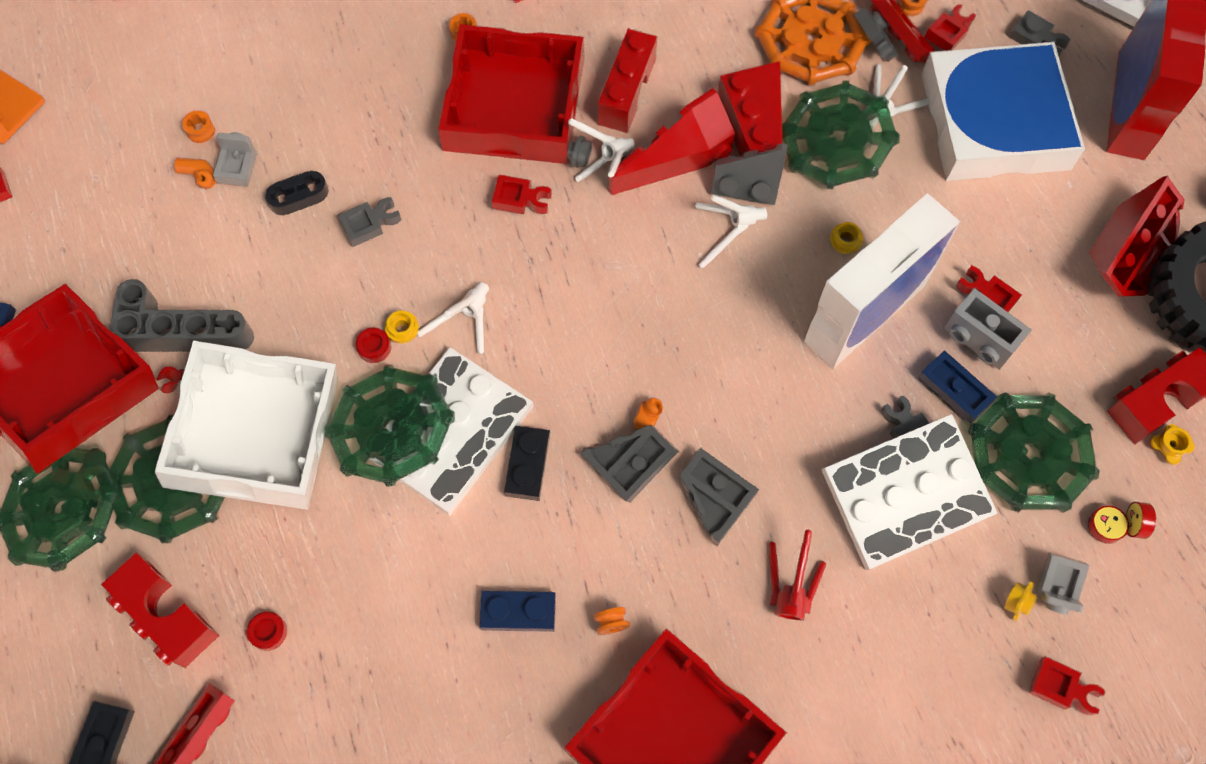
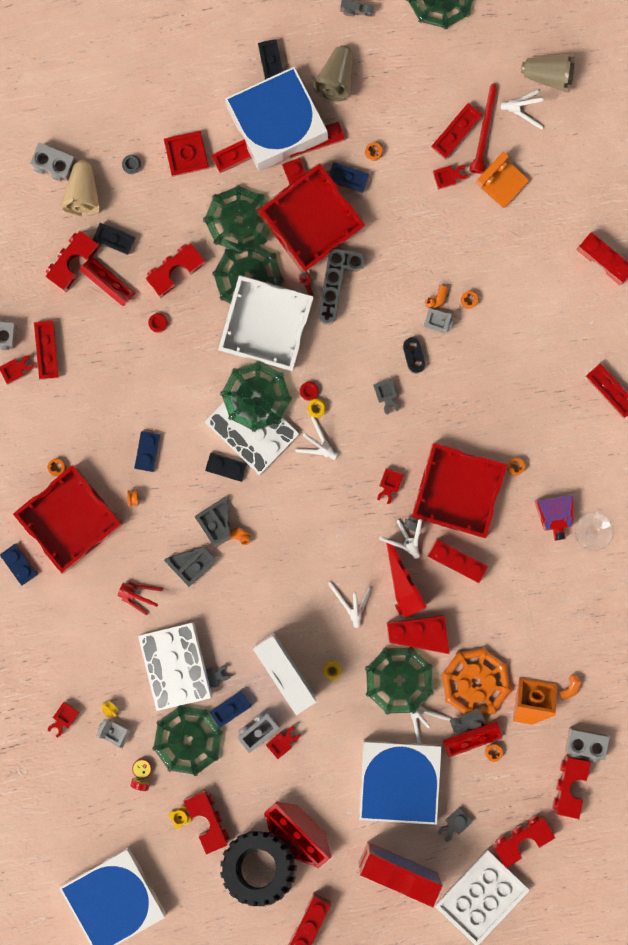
camera: 100 degrees right, 20 degrees up
(751, 175) = (377, 620): dark grey wing -> none
(949, 30) = (465, 768): red plate -> none

